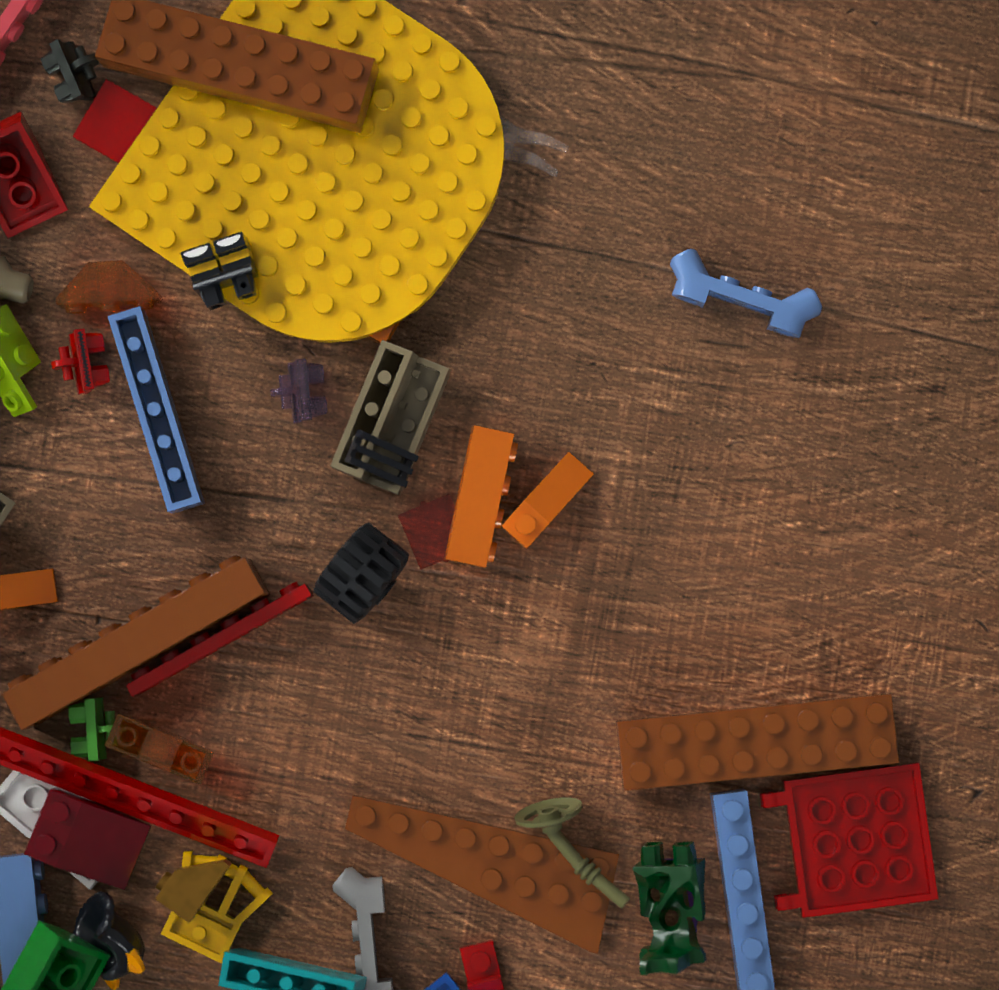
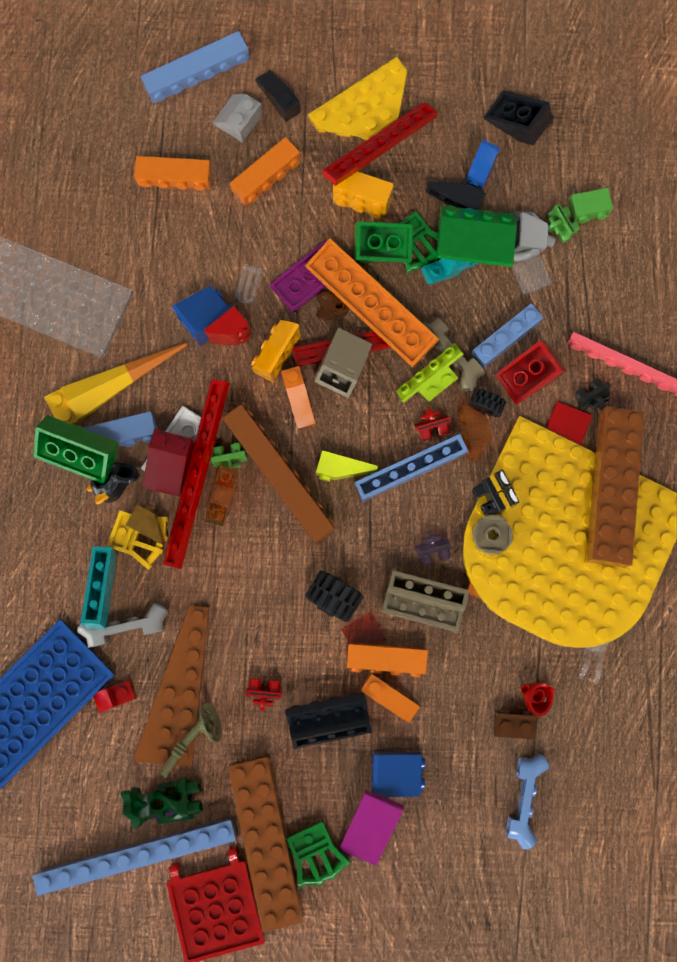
camera: 85 degrees right, 5 degrees down
(58, 259) = (487, 402): none -> black tyre
(137, 534) = (340, 467): none -> neon yellow slope
(205, 645) = (283, 513): red plate -> none
(280, 270) = (500, 527): none -> dark tan plate
(404, 468) = (397, 613): black tile -> none
(511, 699) = (272, 692): none -> red hips
(570, 610) = (328, 720): none -> black brick
(574, 254) = (534, 697): none -> red helmet
(619, 295) = (515, 724): none -> reddish brown bracket
(673, 505) = (397, 773): none -> blue slope
(753, 560) = (371, 827): none -> magenta tile
(768, 668) = (310, 842): none -> green plate

